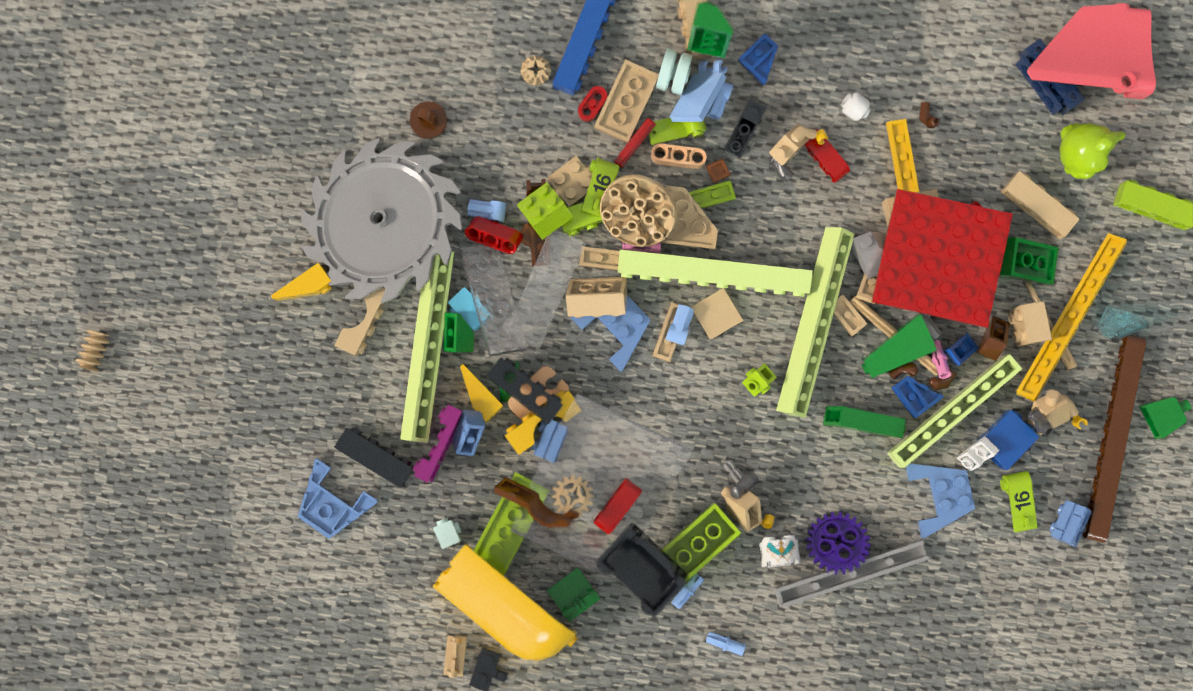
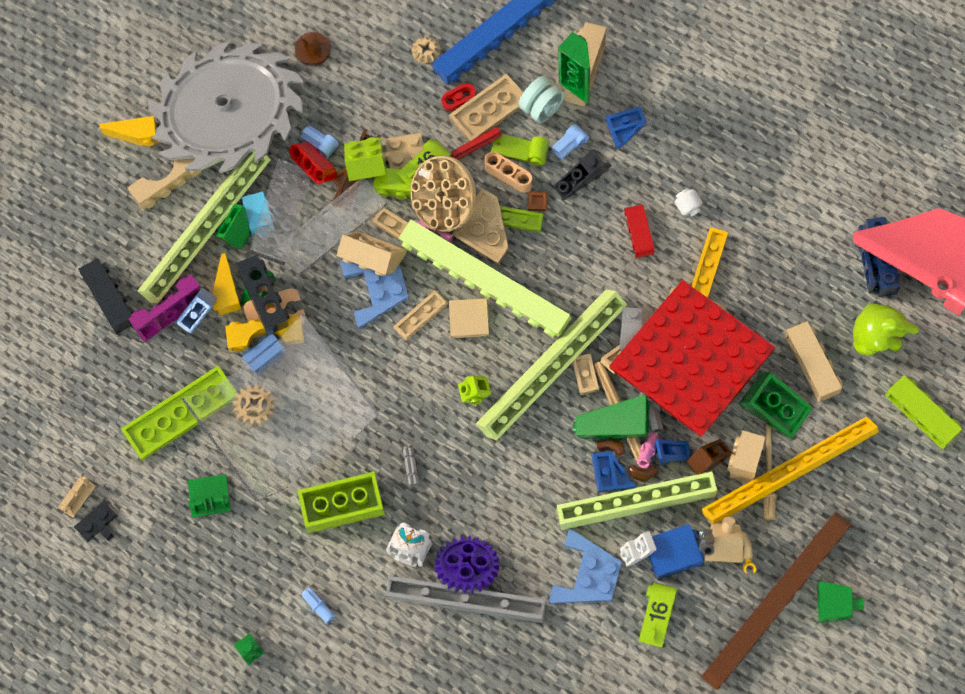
camera: 35 degrees right, 15 degrees down
(327, 511) = (41, 320): medium blue wing -> none
(447, 532) = (131, 388): light aqua brick -> none
(502, 608) = (139, 471): yellow panel -> none
(531, 501) = (215, 392): reddish brown piece -> none
(617, 506) = (288, 435): red beam -> none
(643, 569) = (276, 487): black windscreen -> none
(679, 328) = (426, 314): light blue piece -> none
(688, 590) = (310, 541): light blue axle -> none
(699, 93) = (554, 126): light blue tile -> none
(744, 505) = (399, 489): tan torso -> none
(790, 145) = (608, 205): tan torso -> none
(864, 421) = (550, 471): green slope -> none
(925, 117) = (748, 240): reddish brown arm -> none
(1070, 523) = (693, 655): medium blue brick -> none
(1120, 323) = (833, 497): clear light blue slope -> none

